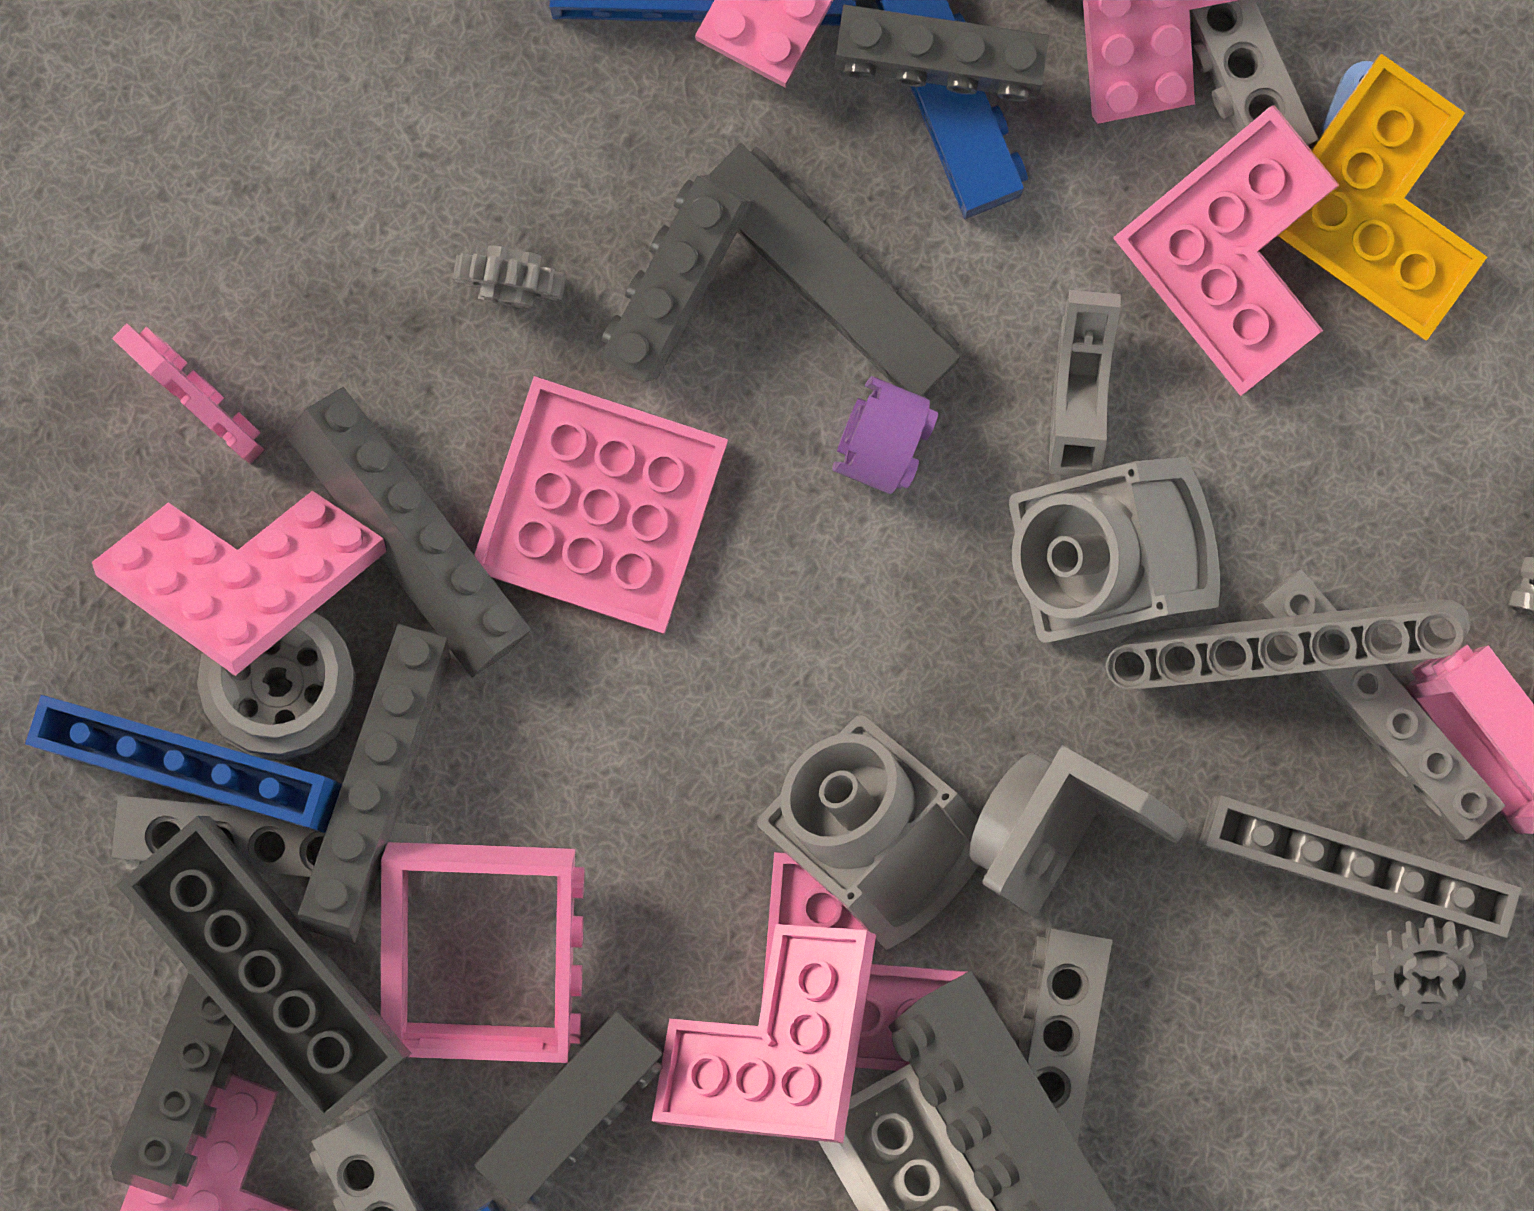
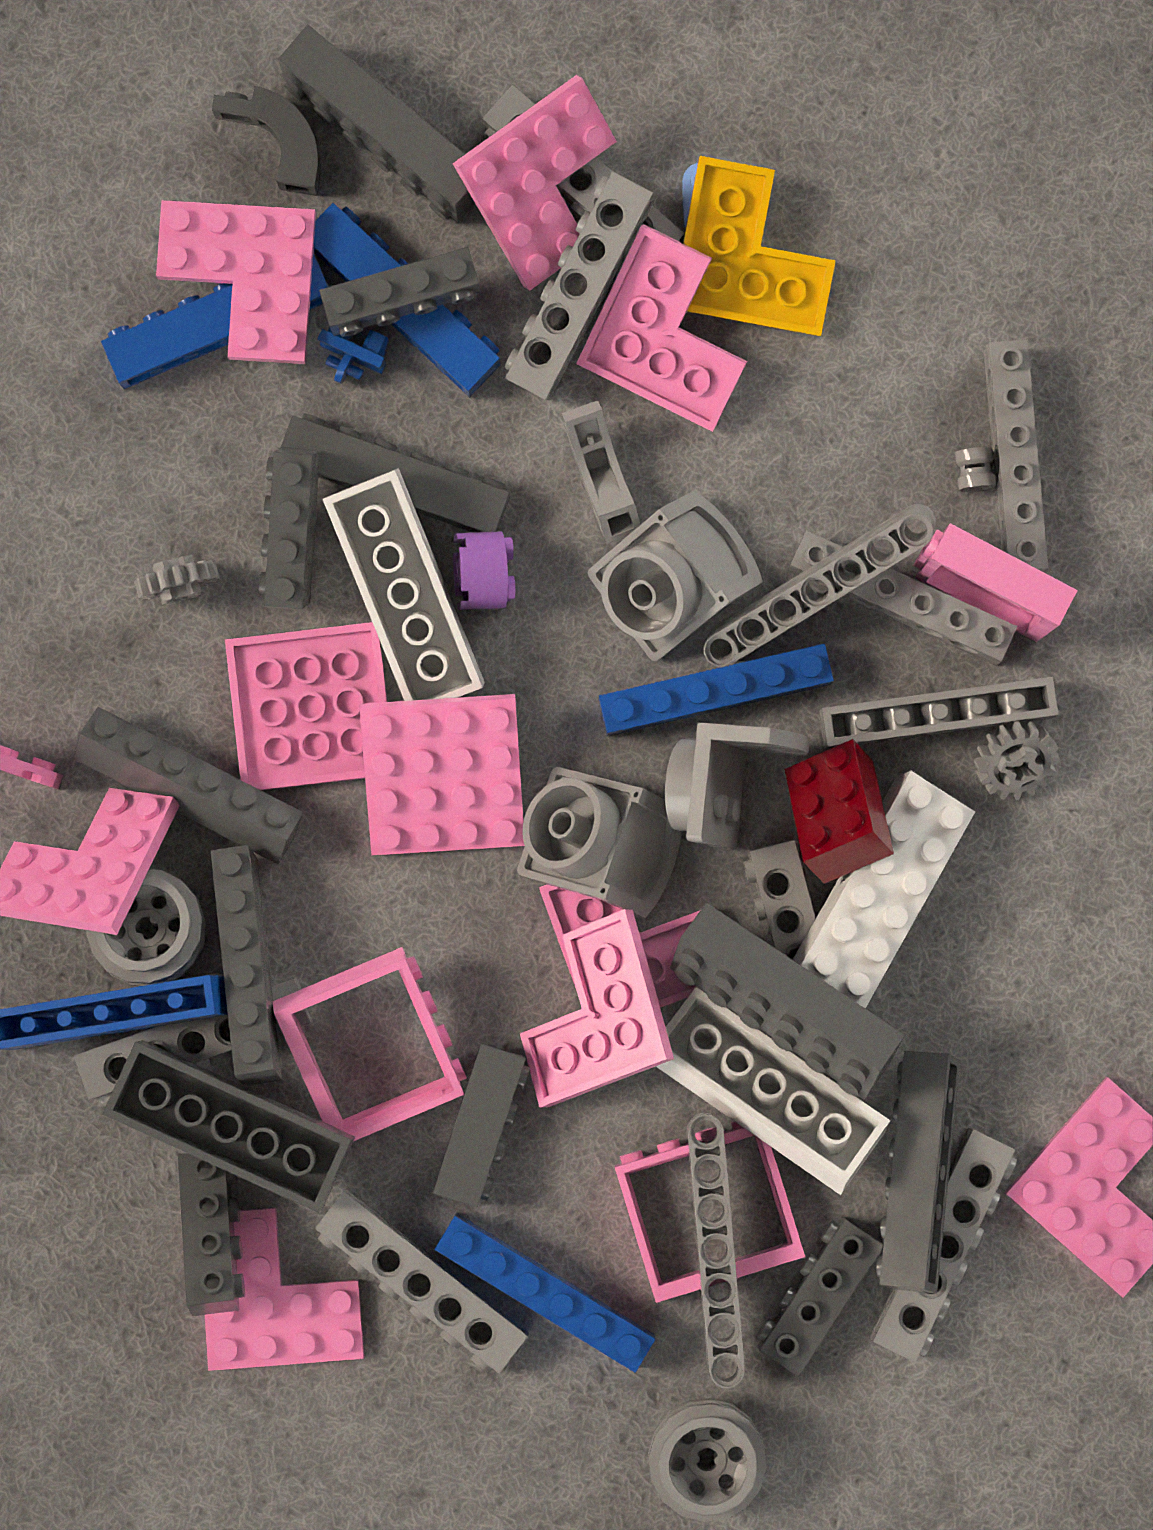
camera: 25 degrees left, 0 degrees up
(721, 661) = (442, 774): none -> bright pink plate
(777, 418) = (403, 589): none -> white brick
(866, 113) = (369, 355): none -> blue hips
(1100, 712) = (715, 689): none -> blue brick
(1183, 932) = (838, 811): none -> dark red brick
(1194, 1049) = (878, 903): none -> white brick
(1276, 76) = (635, 204): none -> light grey brick

